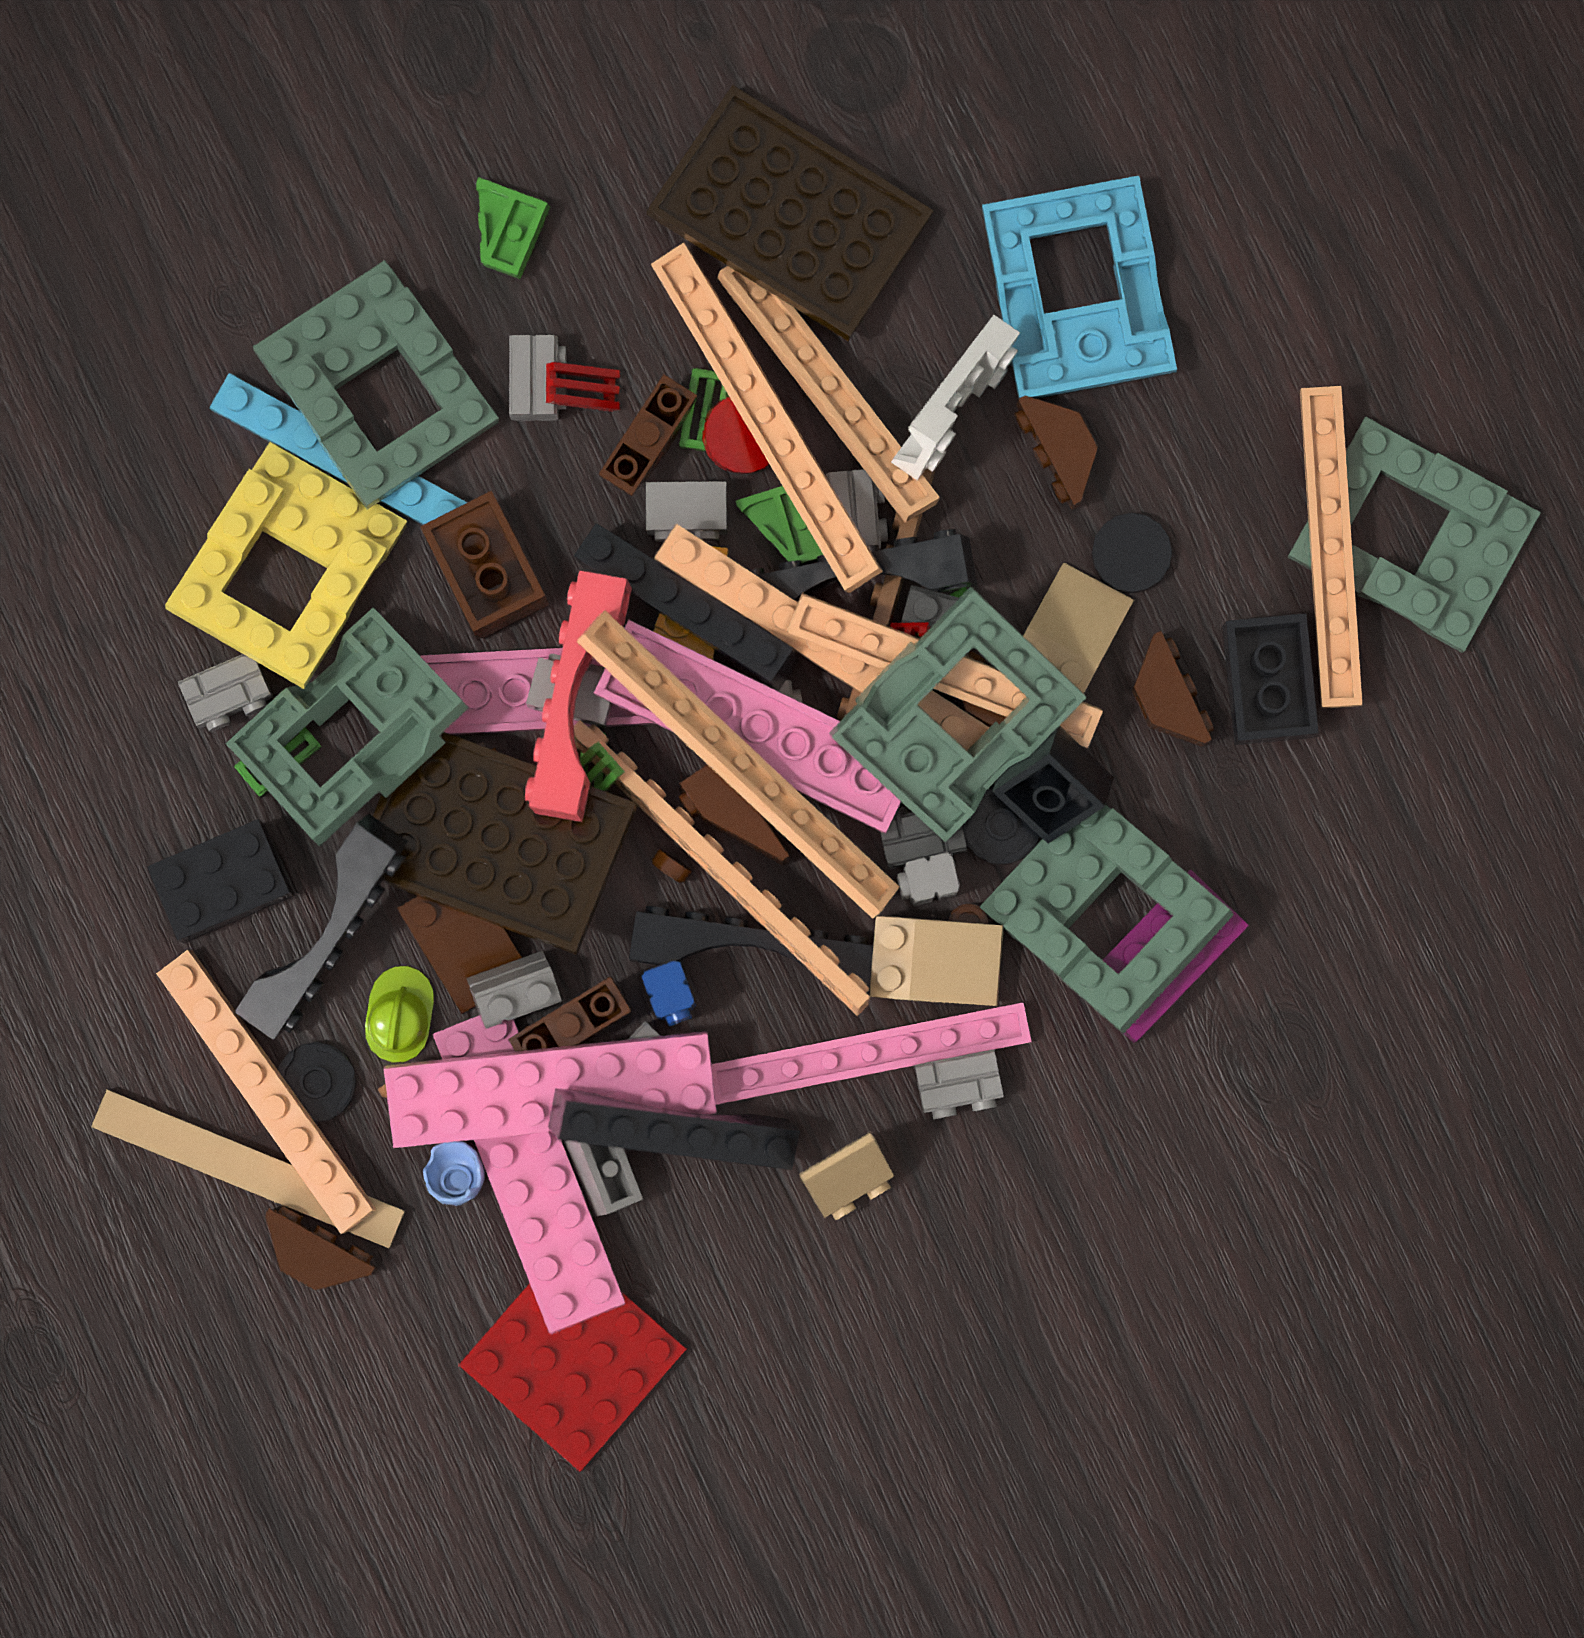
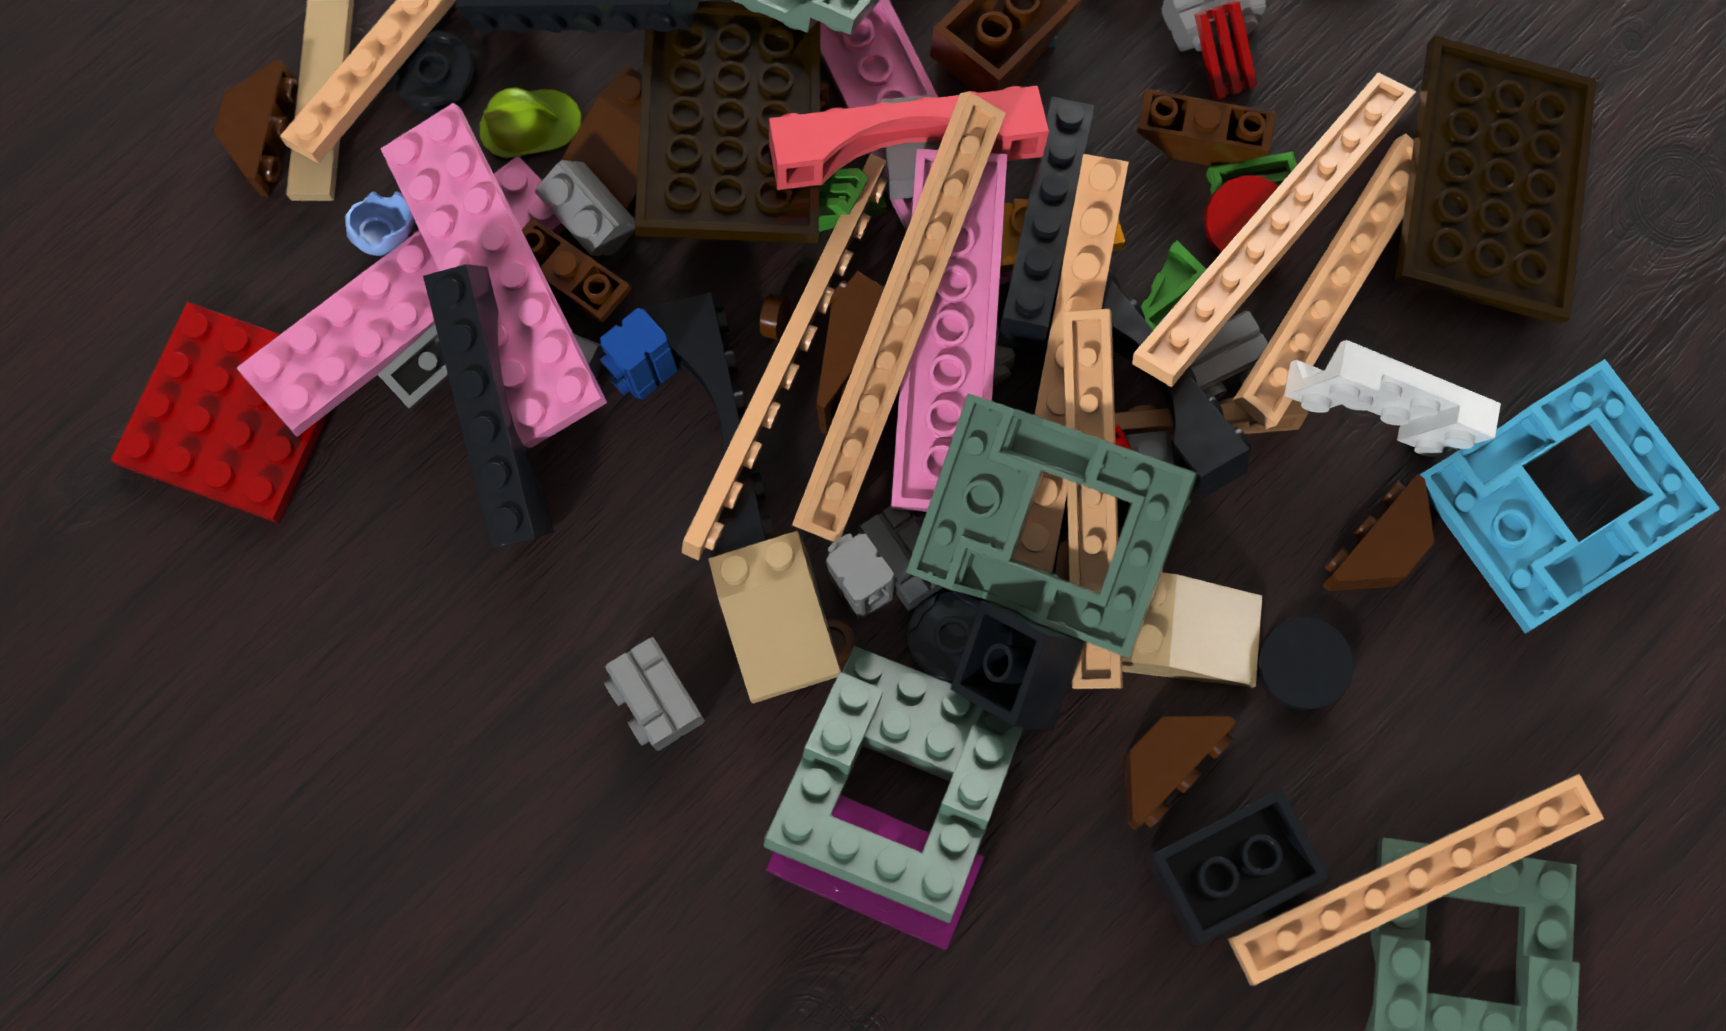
camera: 70 degrees right, 10 degrees down
(692, 505) = (1152, 199): light grey brick -> none
(848, 1176) = (503, 607): tan slope -> none
(870, 1053) = (654, 593): bright pink plate -> none

